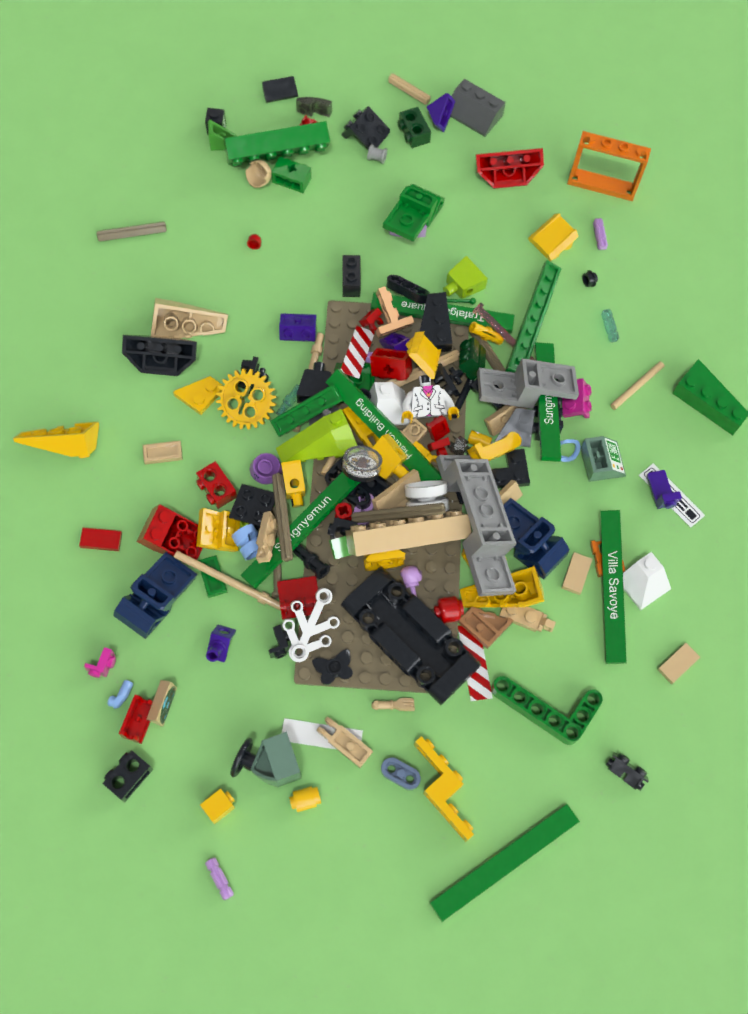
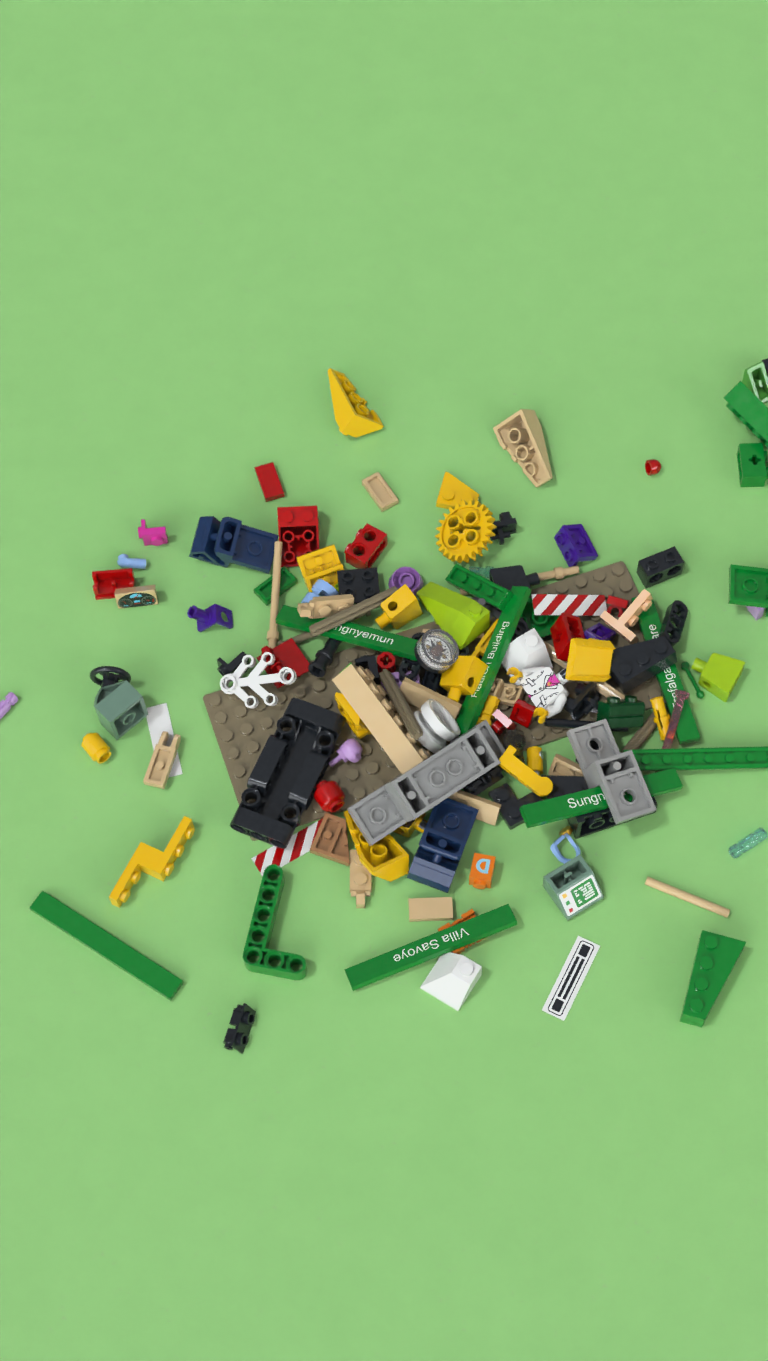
camera: 75 degrees right, 5 degrees down
(131, 231) = (603, 361): dark tan axle -> none
(132, 780) = (59, 602): black brick -> none
(159, 354) = (477, 439): black wedge -> none
(218, 805) = (62, 679): yellow brick -> none
(258, 173) = (733, 435): tan hair -> none
(334, 667) = (229, 721): black animal -> none
(401, 704) = (221, 797): tan piece -> none
(401, 772) = (152, 821): sand blue plate -> none
(562, 519) = (482, 871): none -> orange brick
(581, 405) = (634, 838): dark pink bracket -> none
(662, 491) = (568, 961): dark purple bracket -> none
(678, 663) = (376, 1044): tan tile -> none

